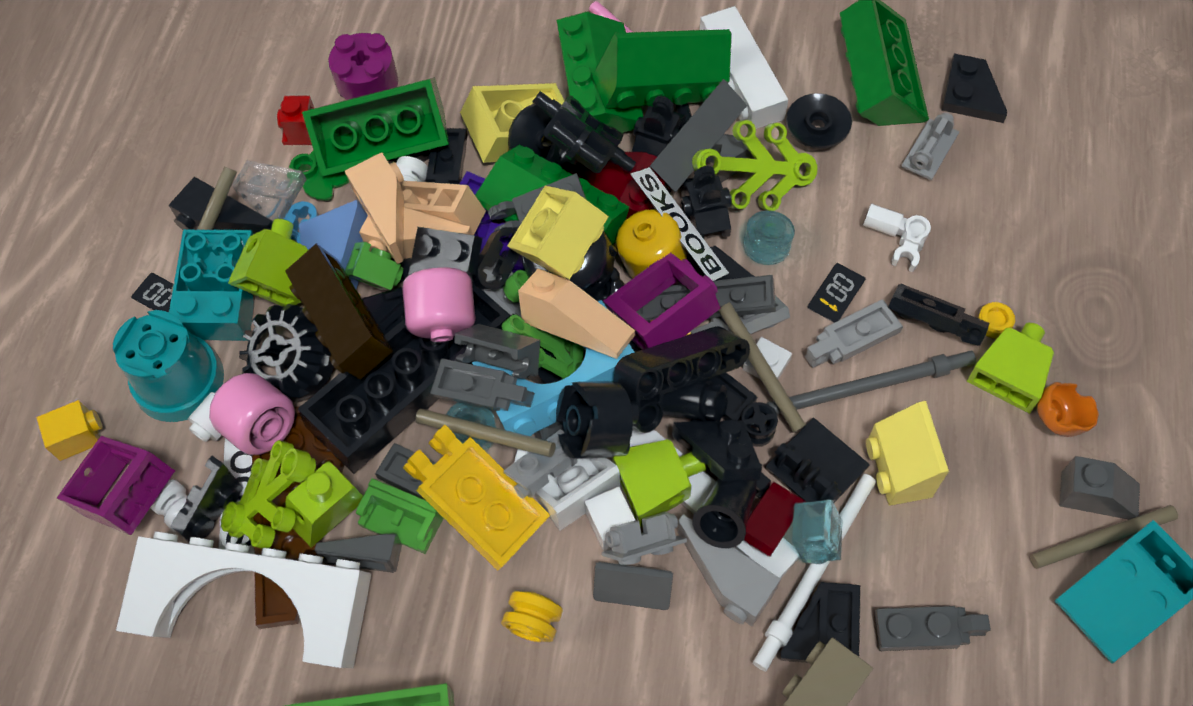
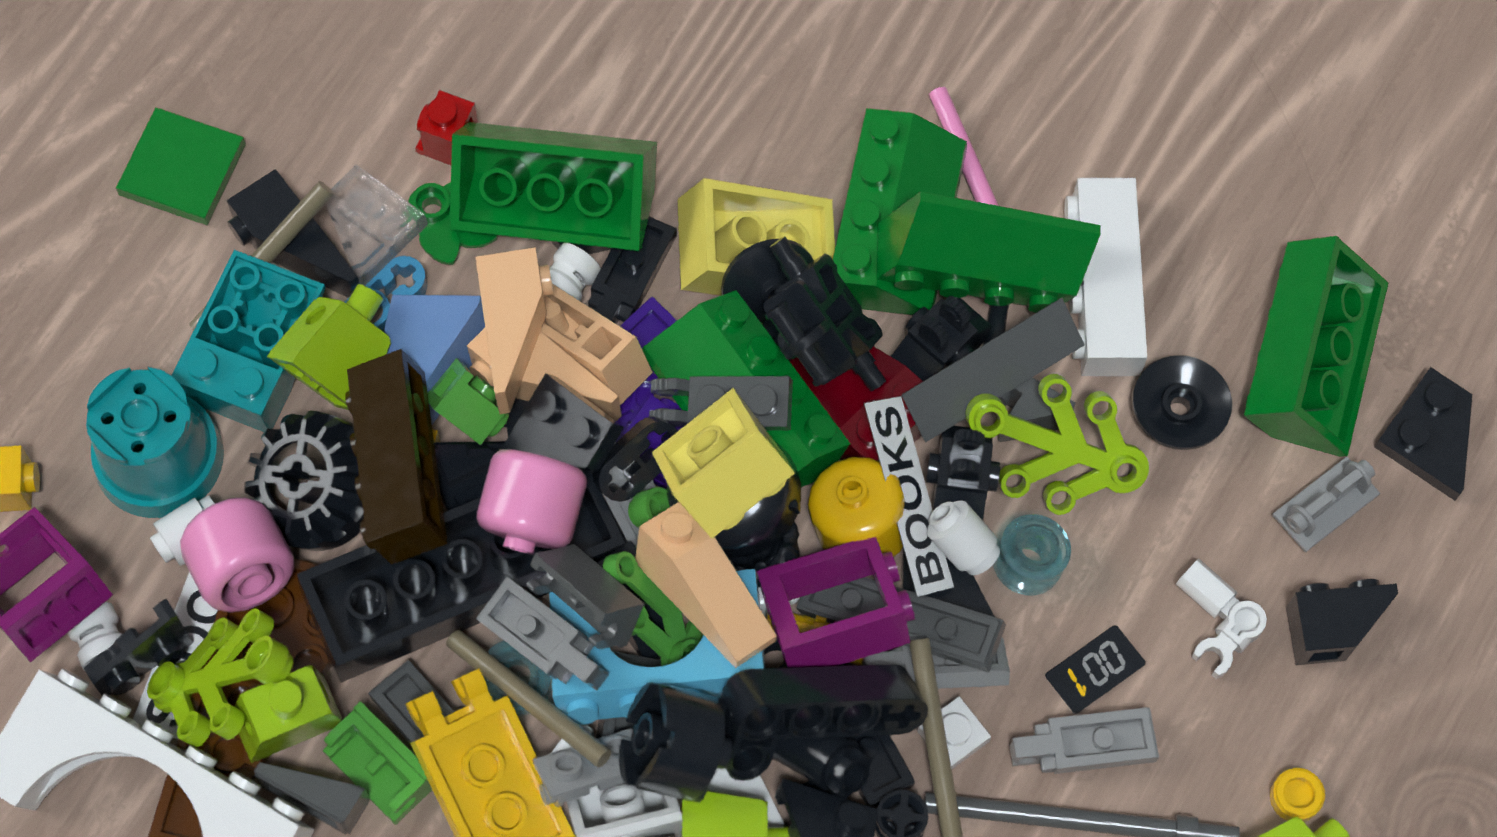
camera: 15 degrees right, 5 degrees up
(132, 201) = (181, 166): none -> green tile
(154, 293) = (168, 319): black sticker -> none
(362, 65) = (566, 79): magenta brick -> none
(723, 238) = (963, 537): none -> white brick
(938, 314) = (1216, 756): black hinge -> none
(969, 211) = (1333, 622): none -> black slope

